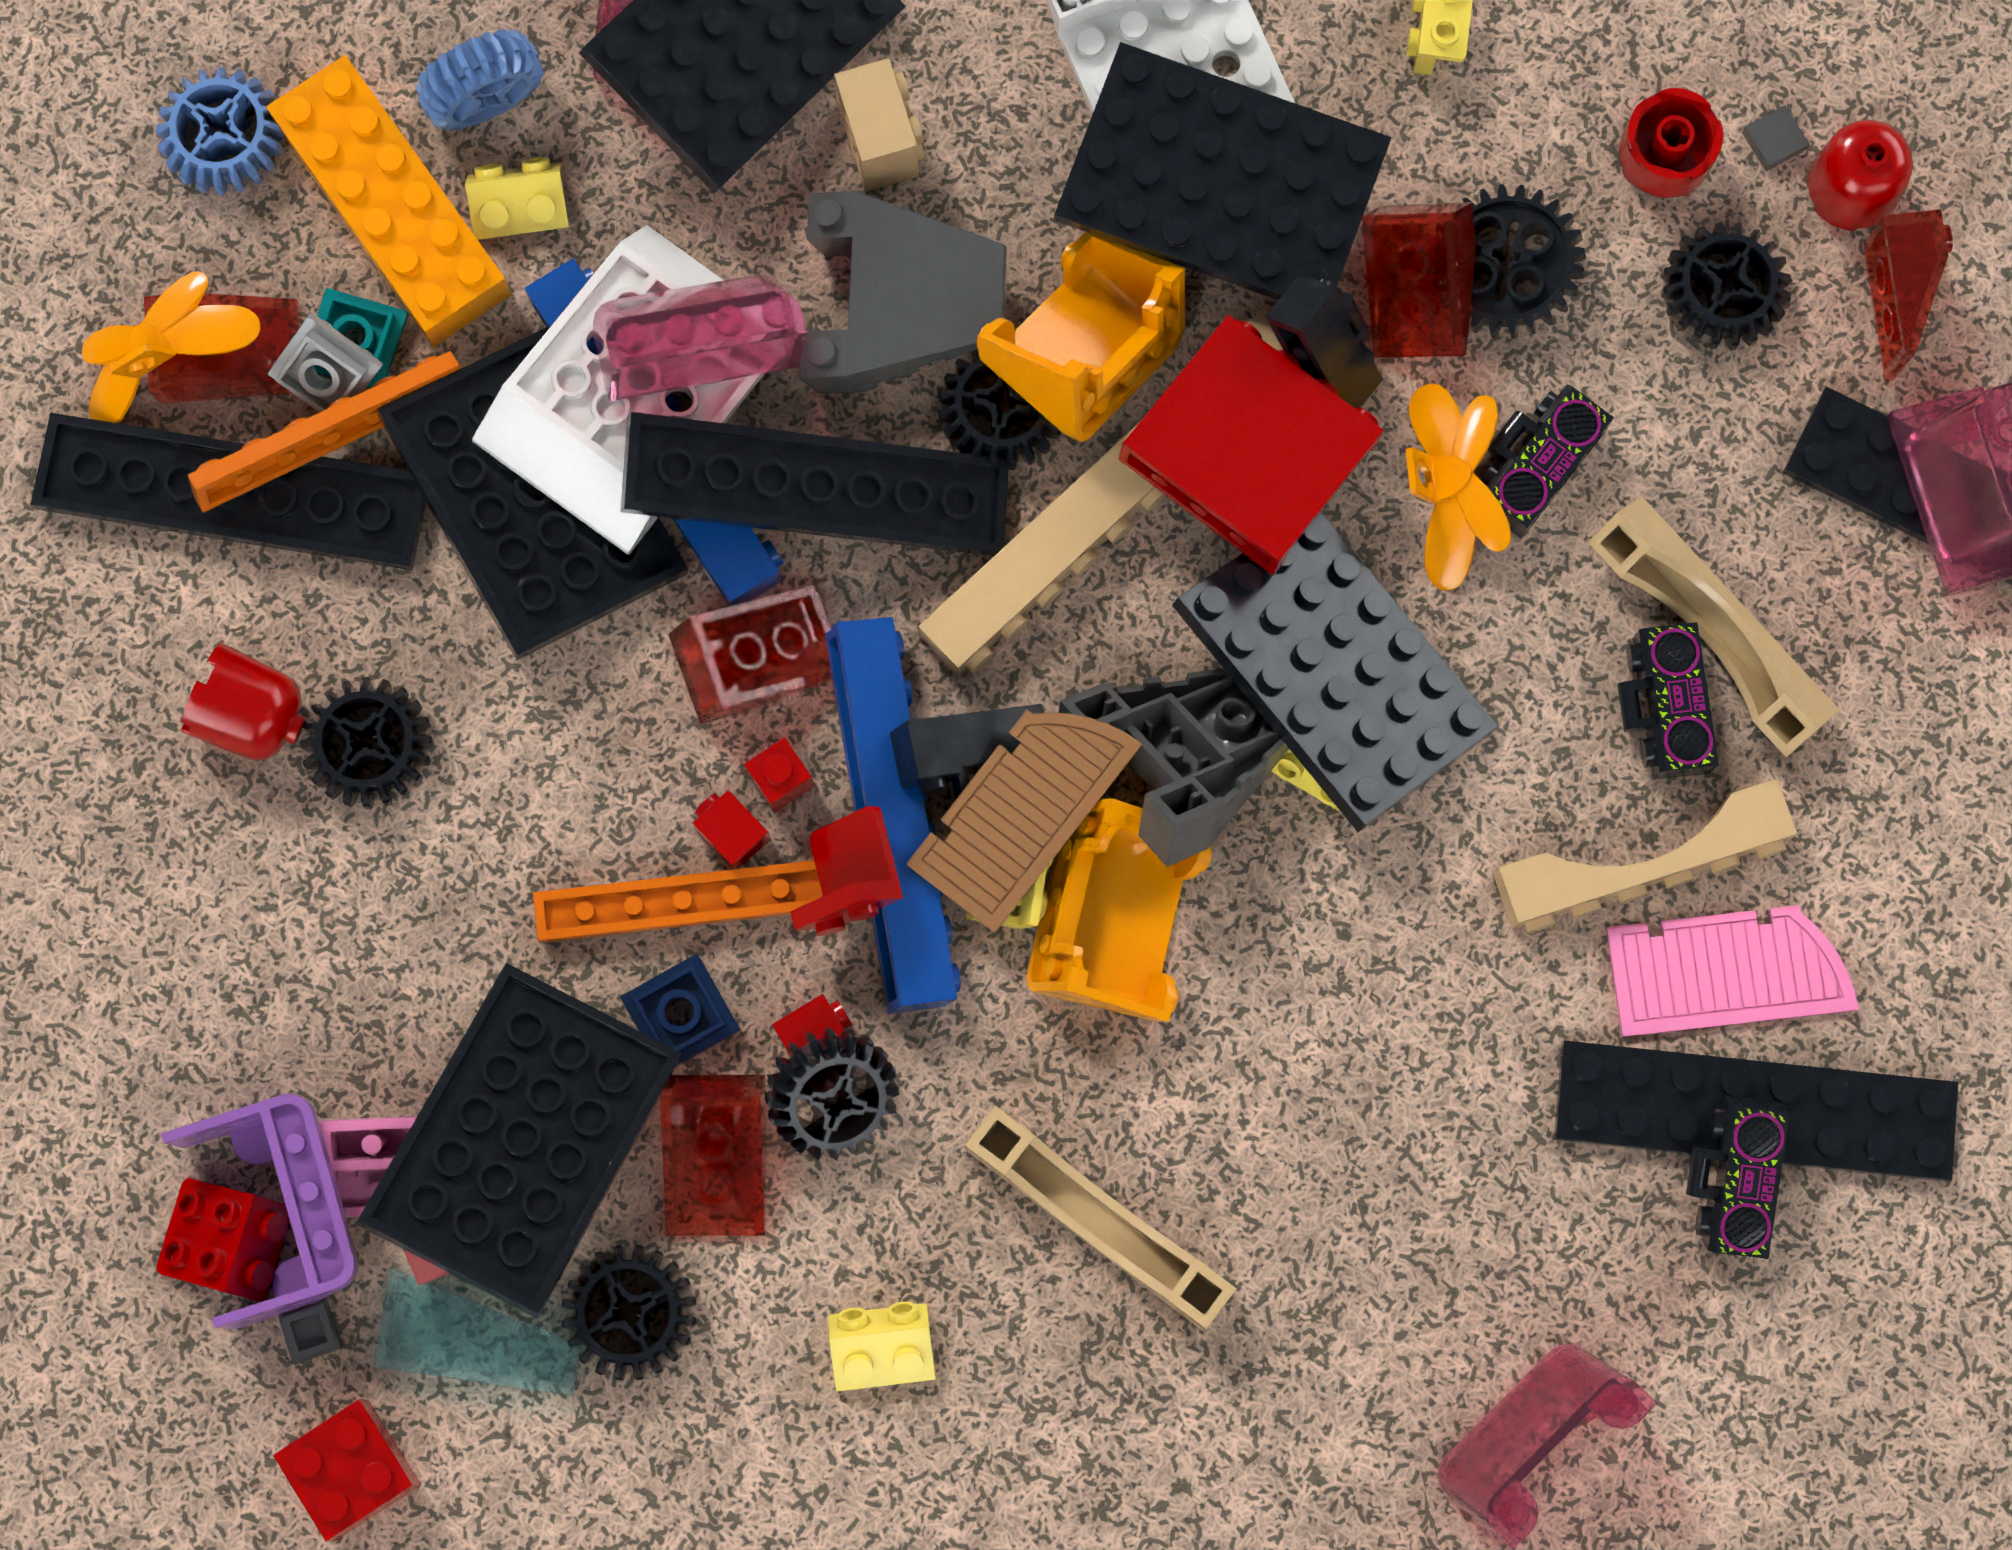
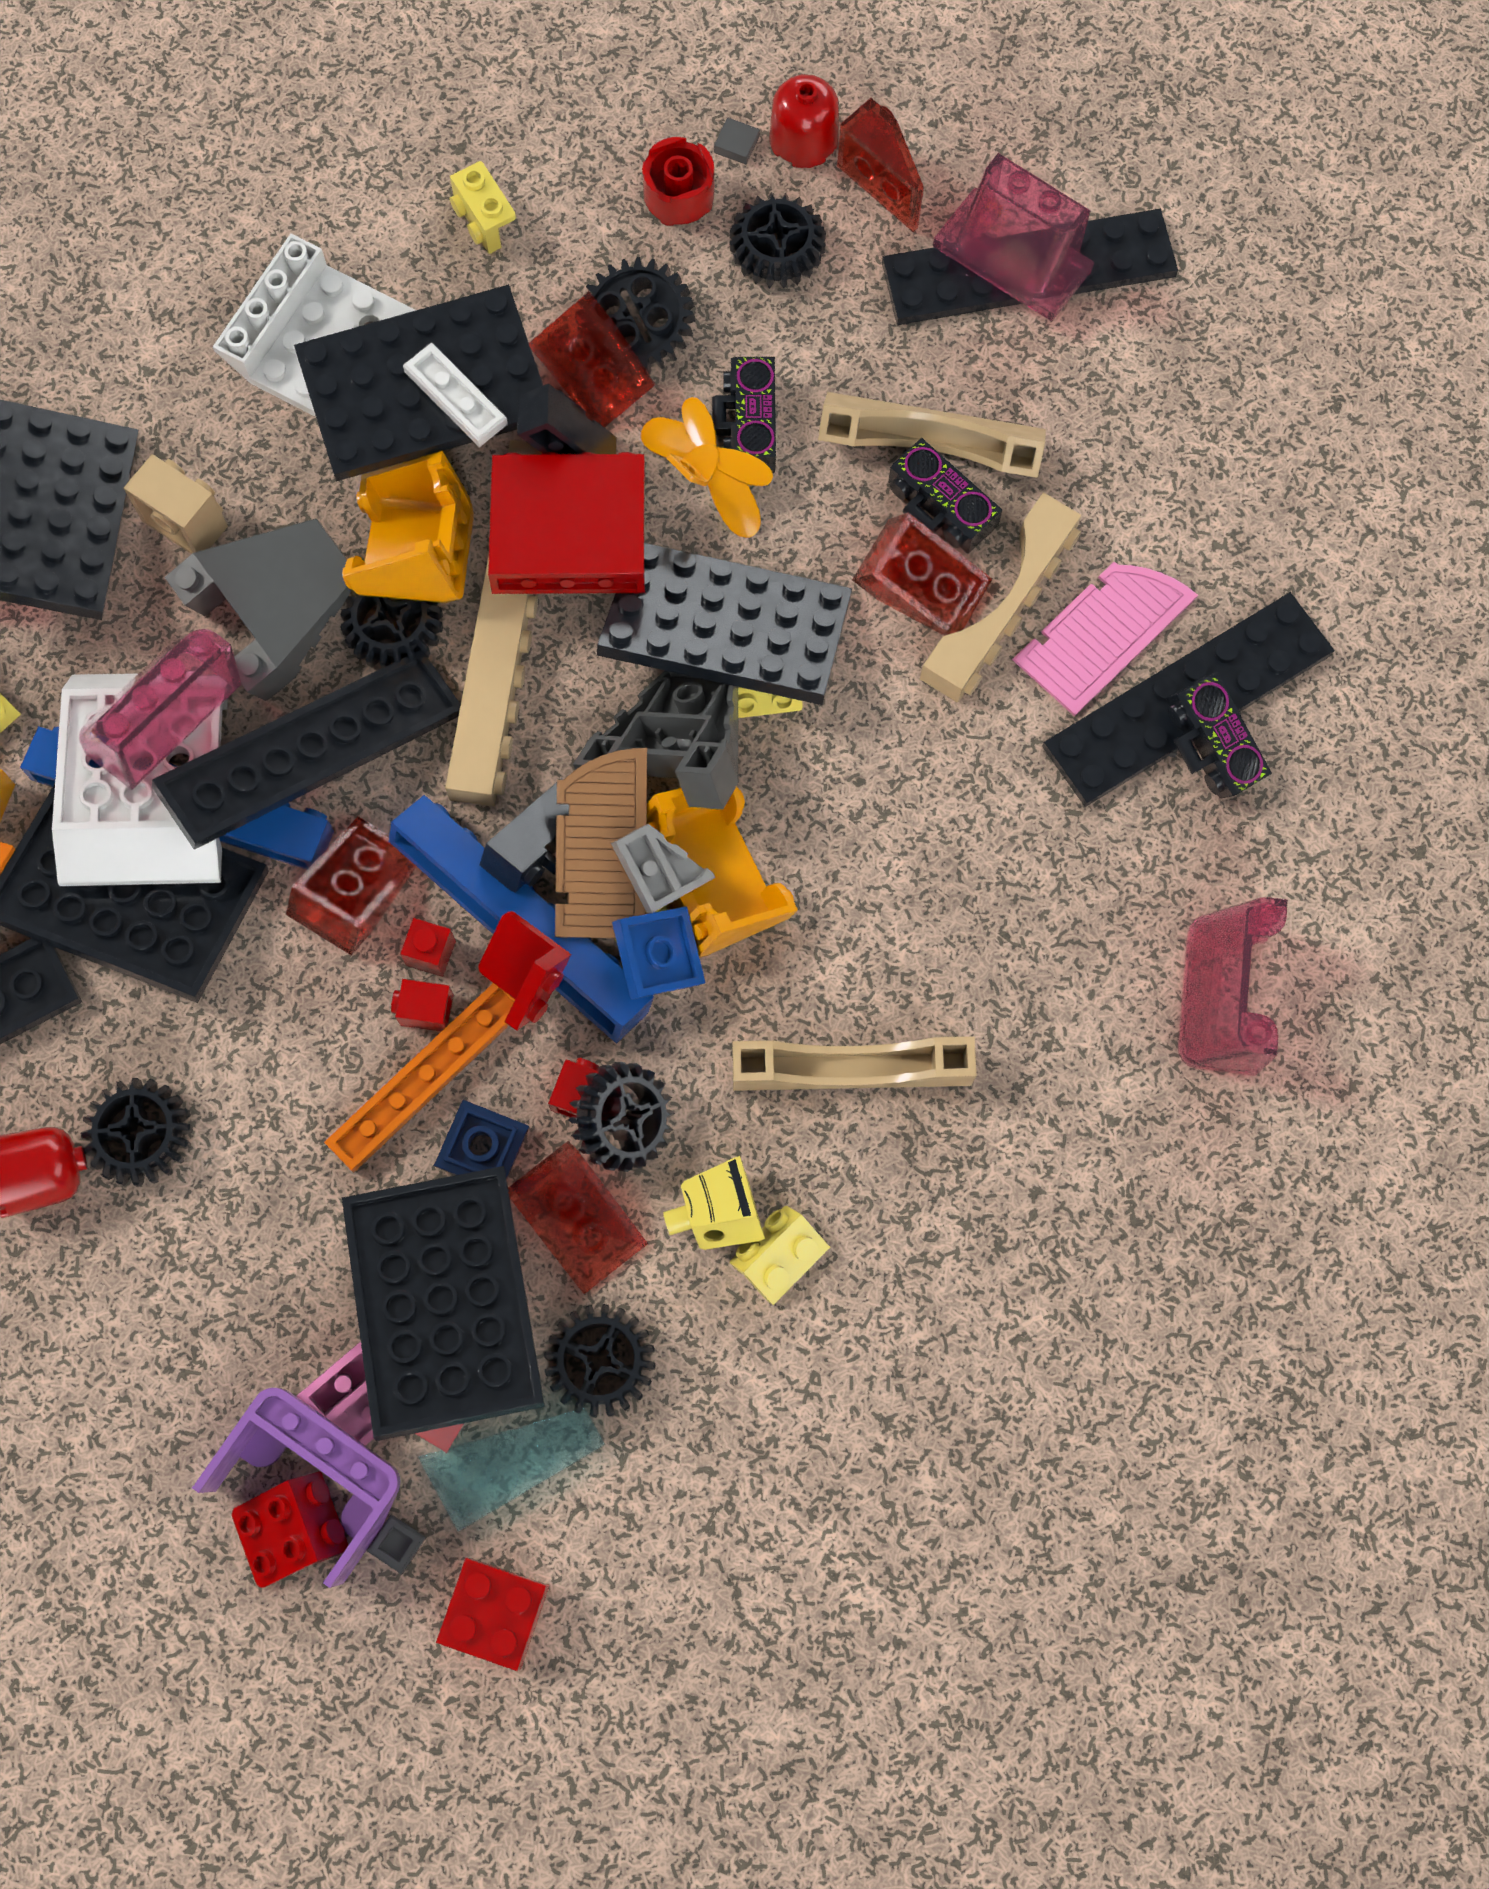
camera: 40 degrees left, 5 degrees down
(855, 1256) = (717, 1208): none -> light yellow torso
(994, 959) = (658, 952): none -> blue plate
(1059, 875) = (658, 868): none -> light grey wing
(1239, 222) = (455, 394): none -> white tile
(1580, 771) = (922, 576): none -> clear red slope

